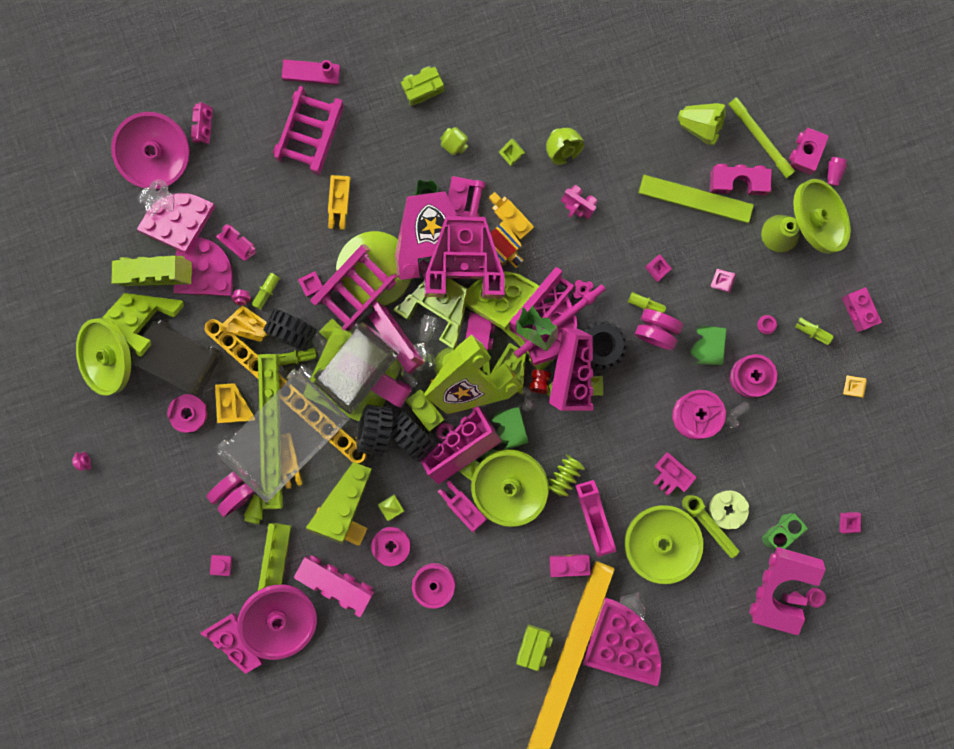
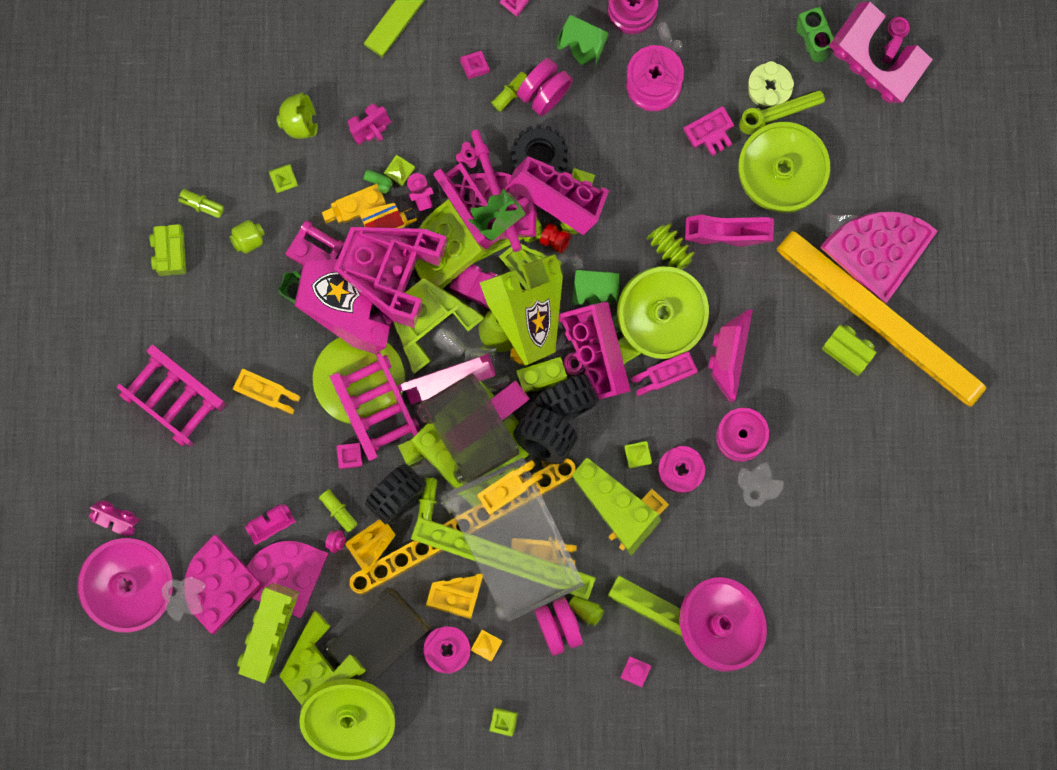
camera: 75 degrees left, 5 degrees down
(147, 476) = (503, 721): none -> lime tile
(201, 442) = (486, 645): none -> yellow tile
(226, 637) = (722, 689): dark pink wing -> none
(311, 72) = (102, 371): dark pink piece -> none
(320, 415) = (507, 488): none -> yellow hinge
(334, 584) = (704, 546): dark pink wedge -> none
(403, 612) = (760, 482): none -> clear plate
(468, 96) = (201, 203): none -> lime axle
(496, 552) = (729, 354): none -> dark pink wedge
(537, 262) = (419, 191): none -> dark pink hips
(538, 227) = (384, 182): none -> bright green arm
(551, 240) = (399, 170): none -> lime tile
(569, 565) = (771, 278): dark pink brick -> none

